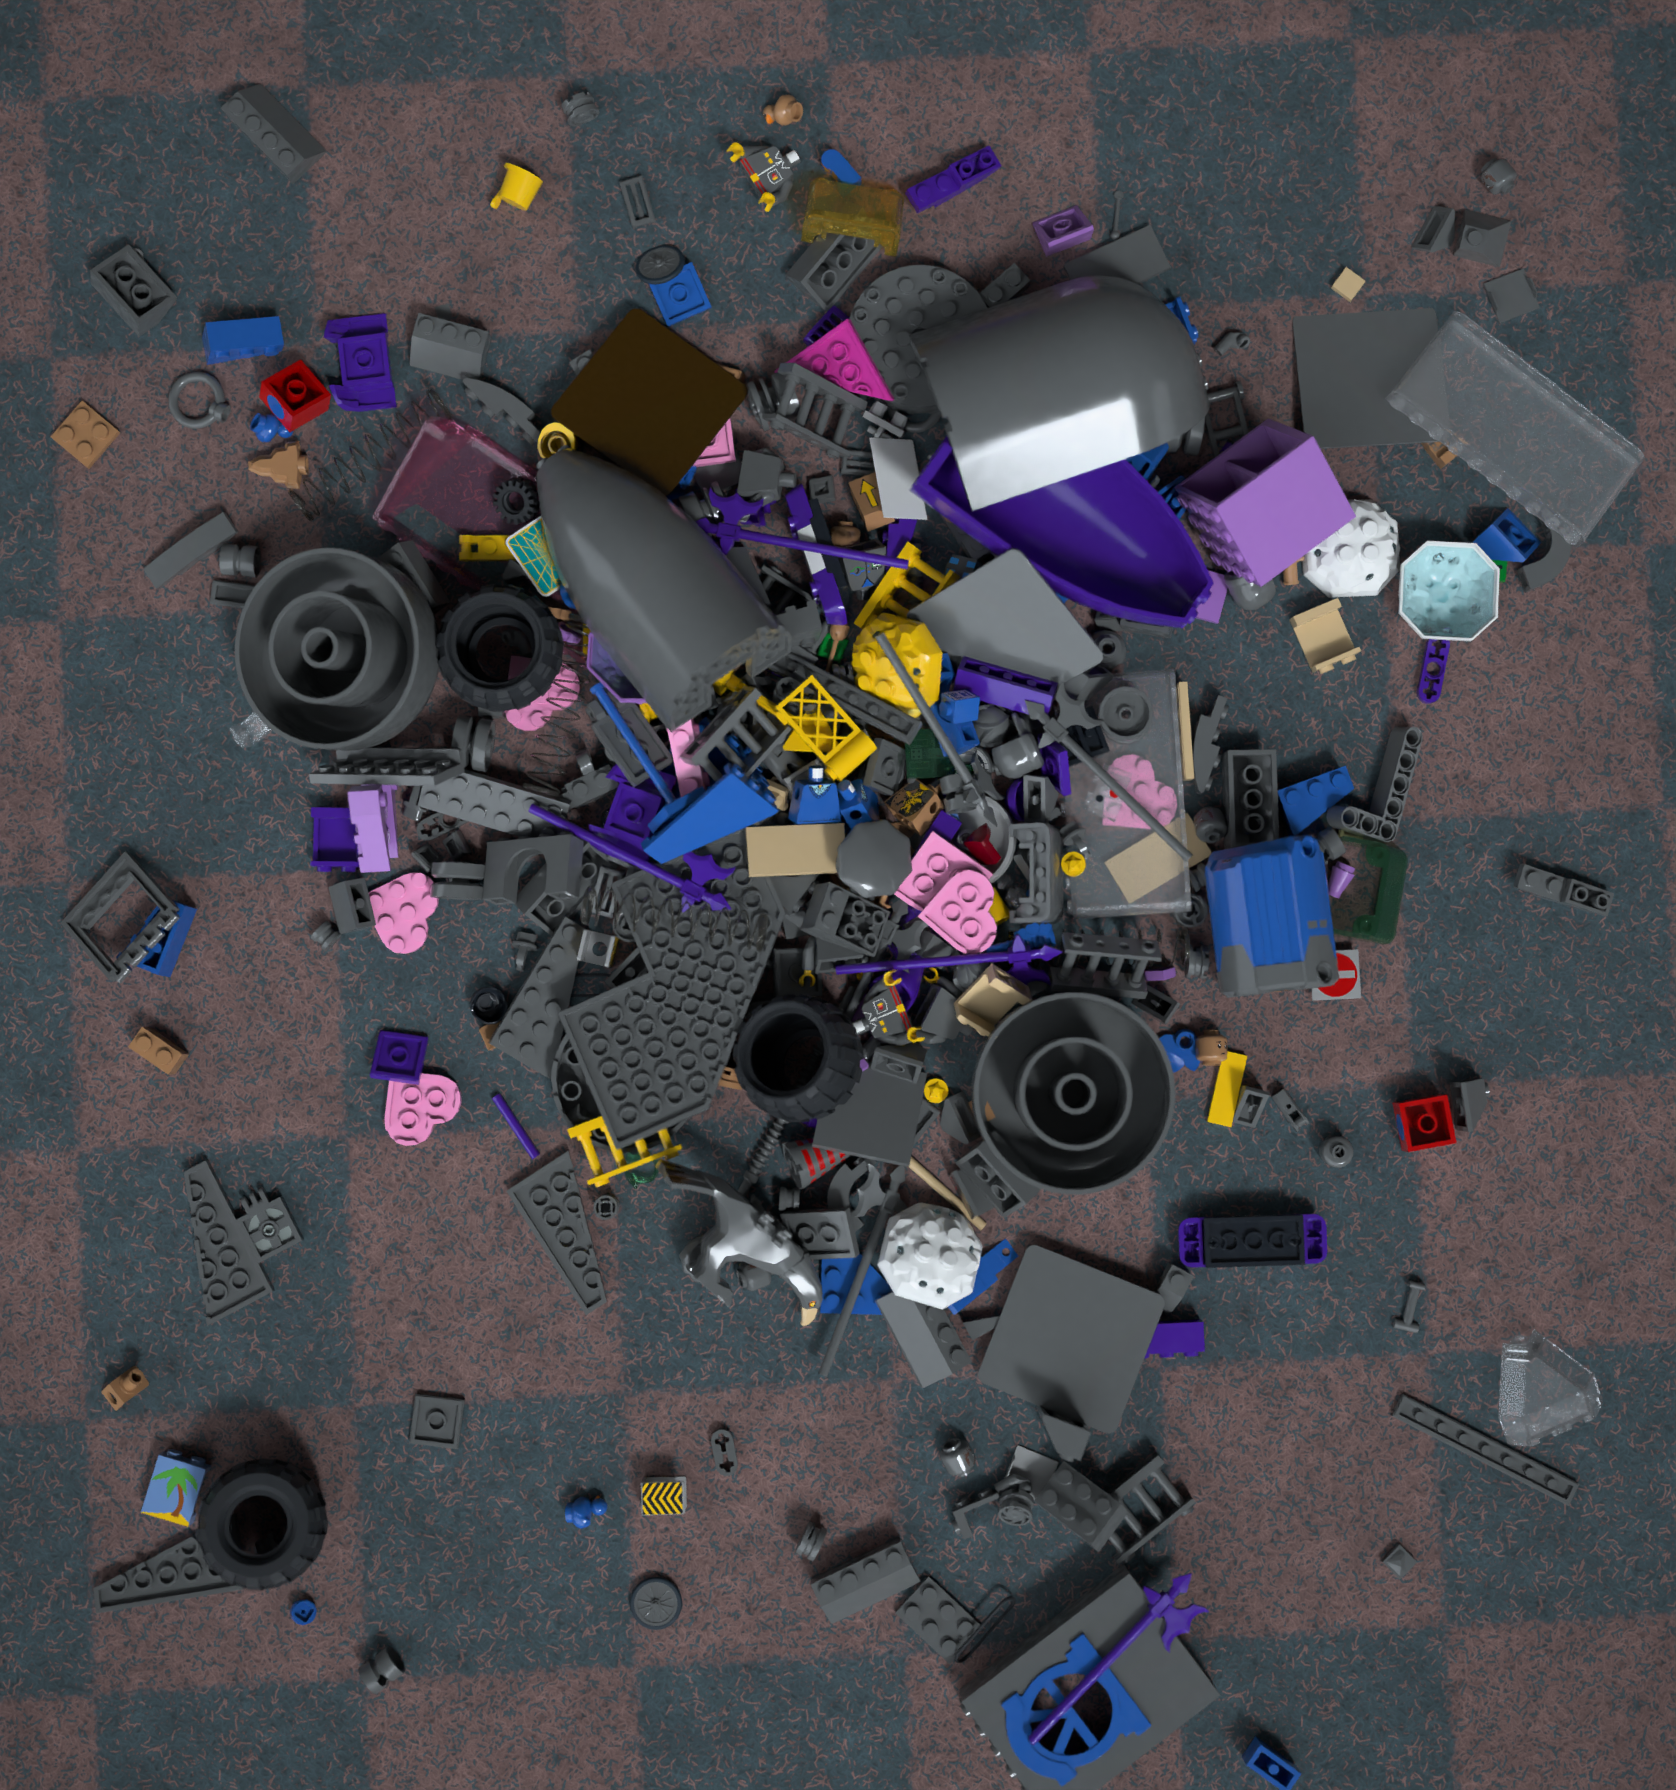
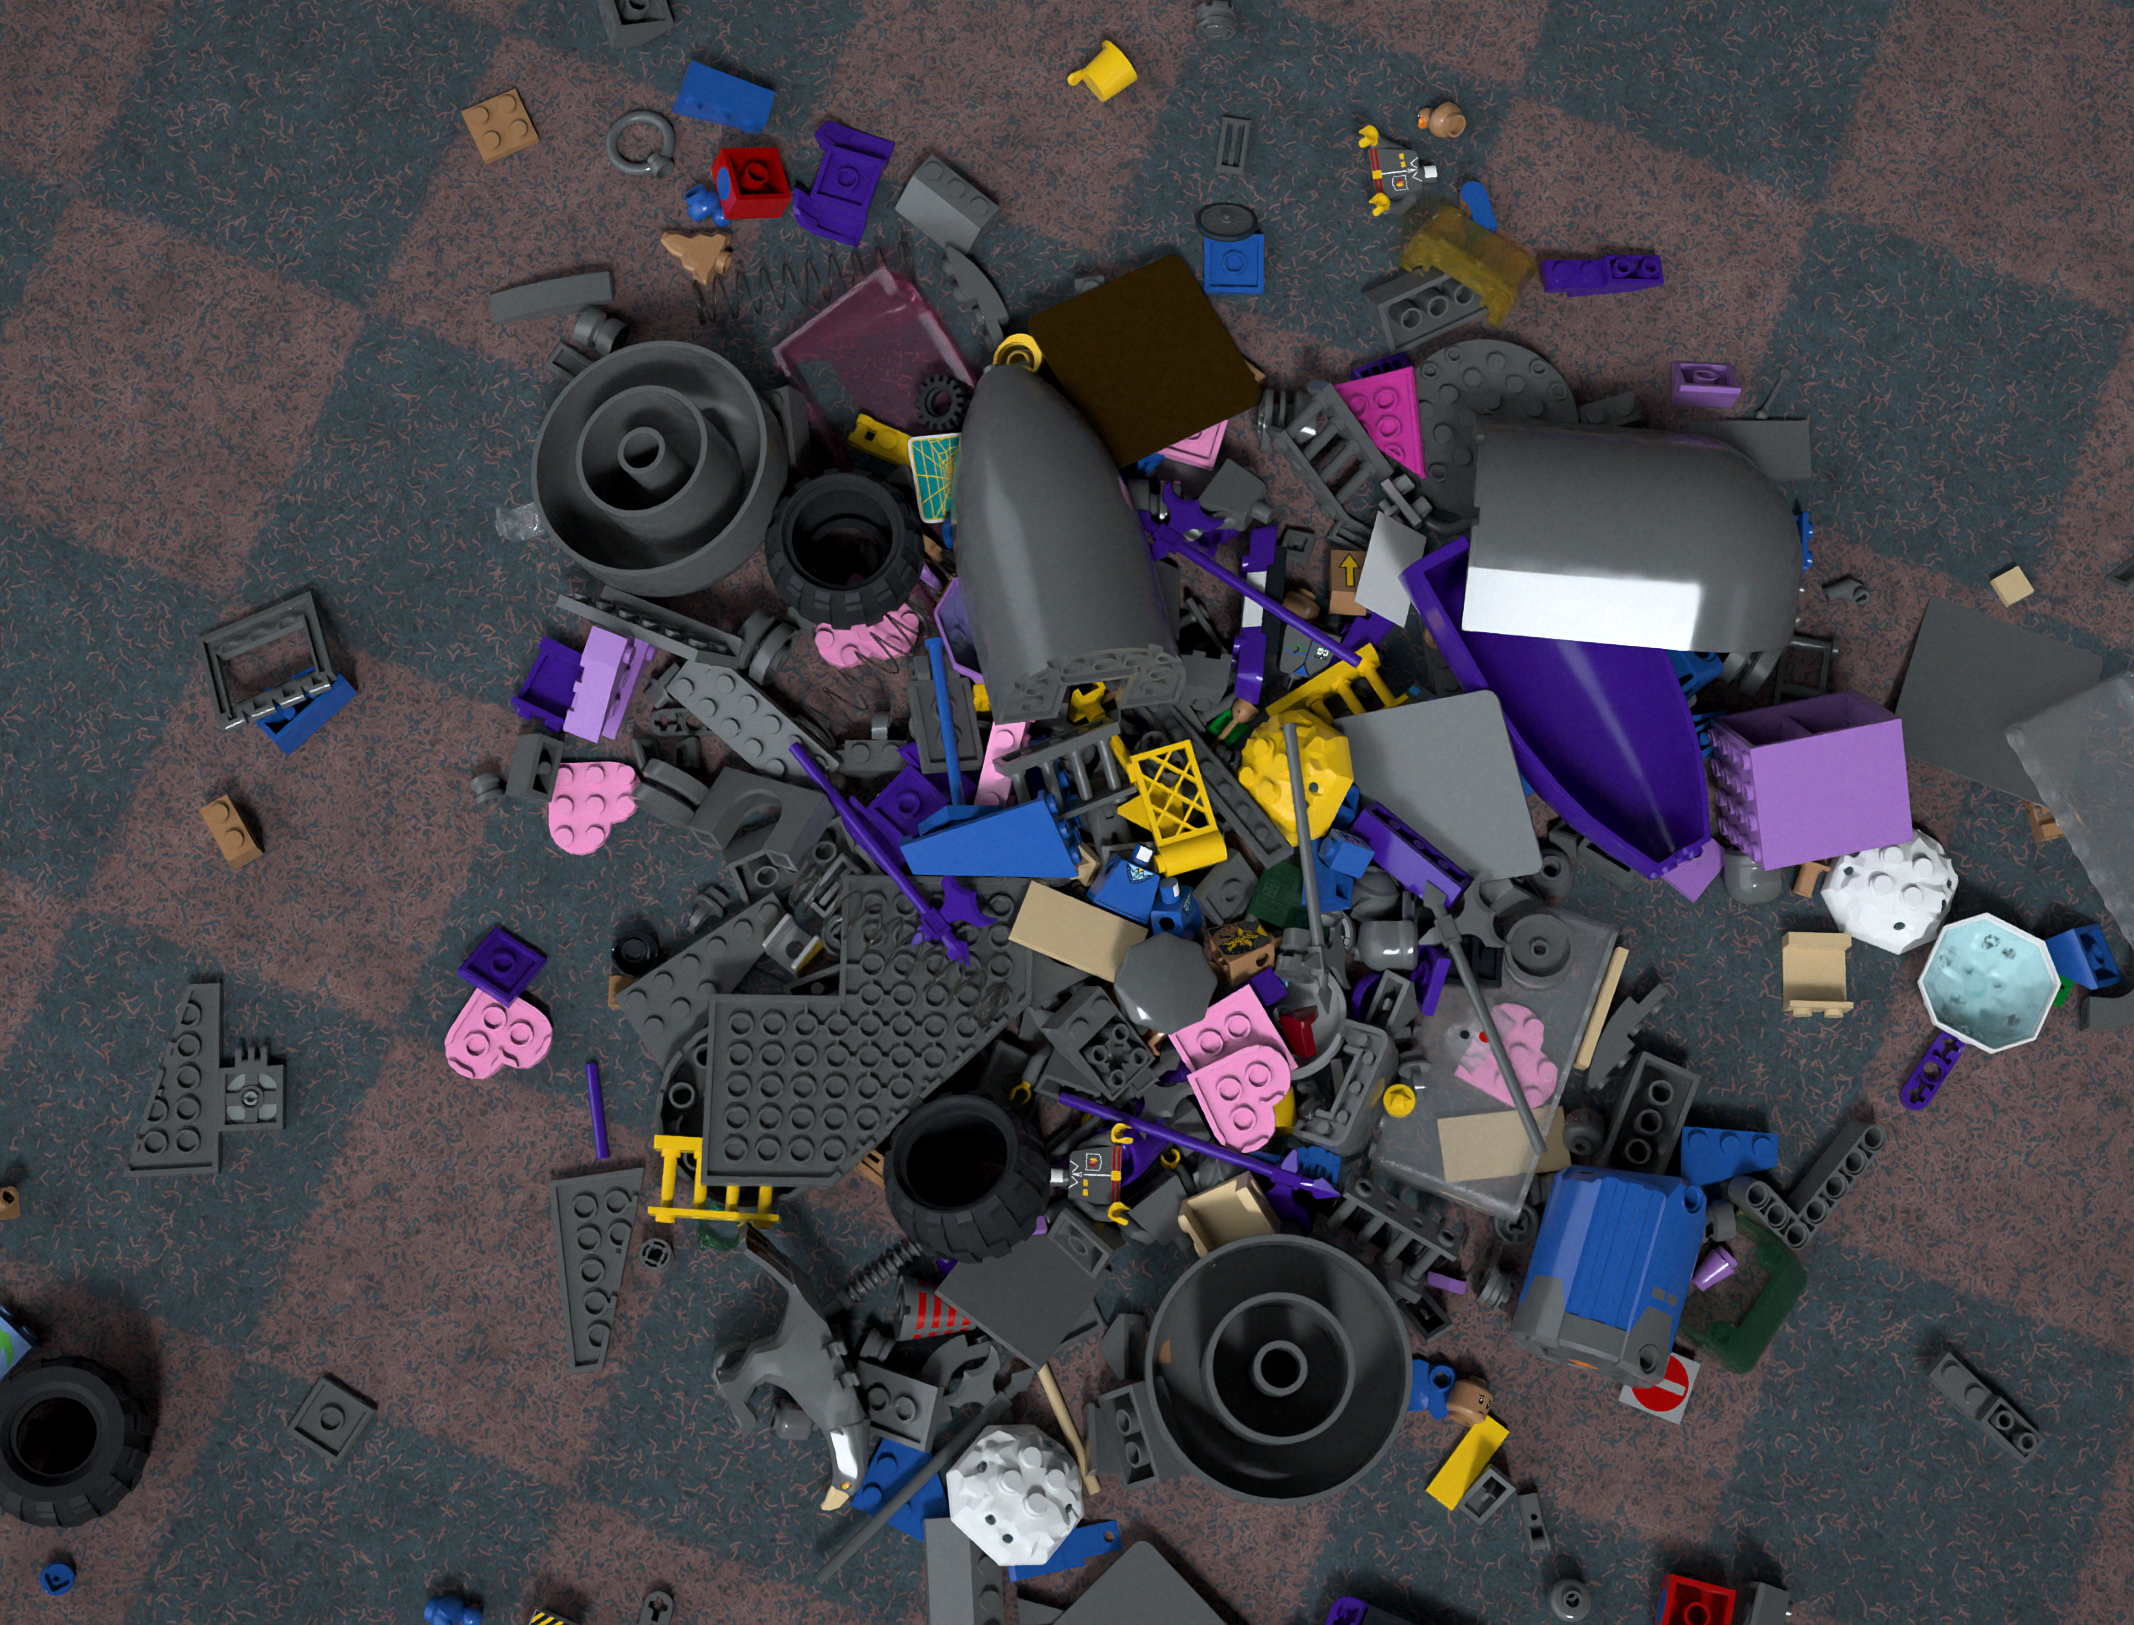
camera: 25 degrees right, 10 degrees down
(936, 1090) = (1113, 1299): yellow tile -> none

